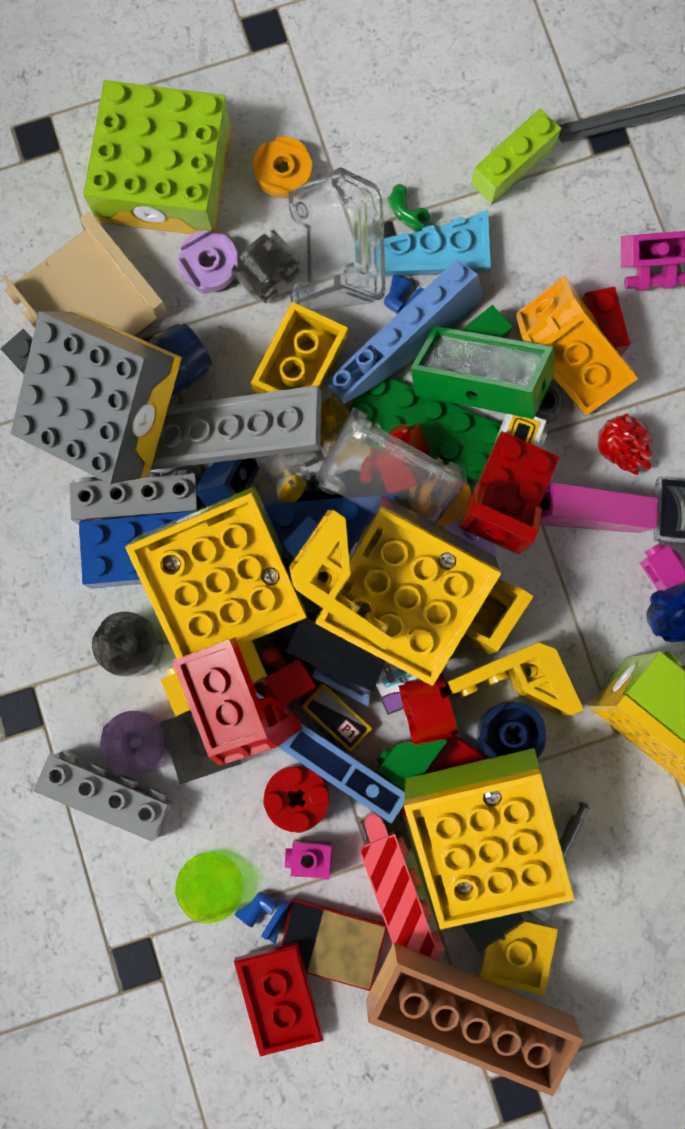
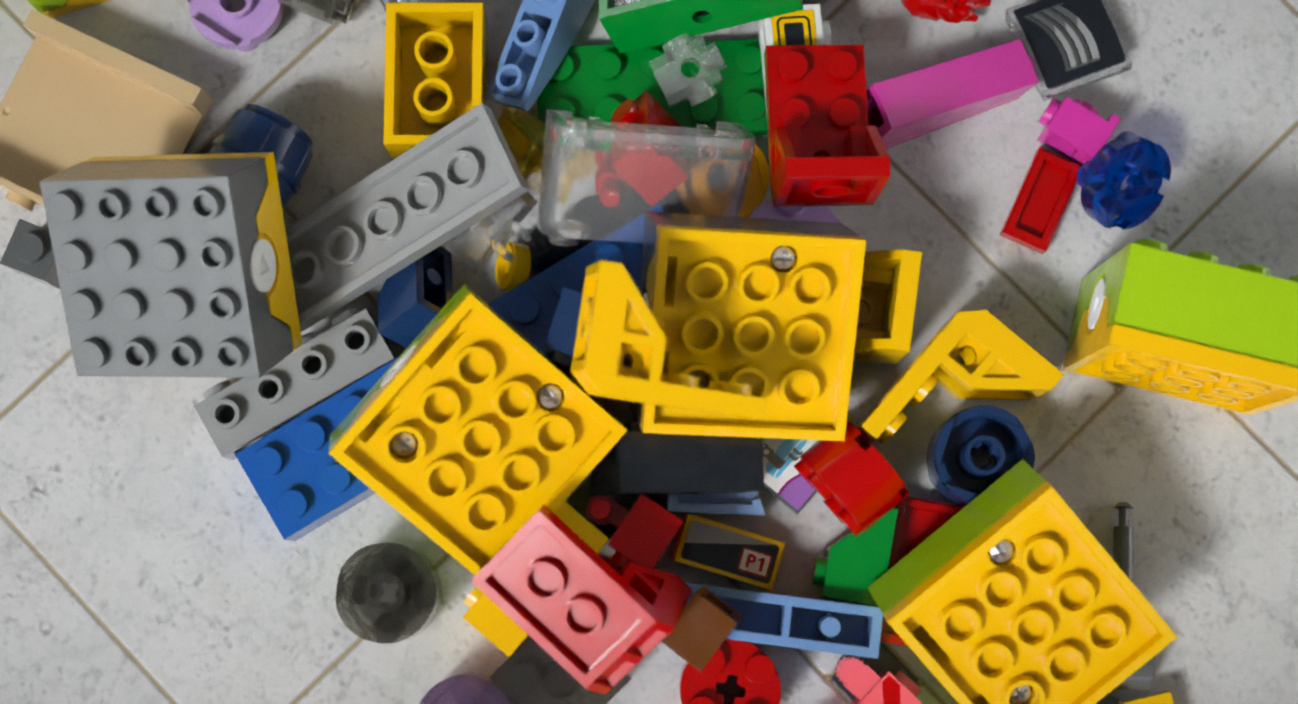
camera: 30 degrees left, 0 degrees up
(296, 754) = (702, 628): none -> reddish brown panel
(437, 417) = (680, 88): none -> clear brick
(623, 600) = (1040, 201): none -> red tile

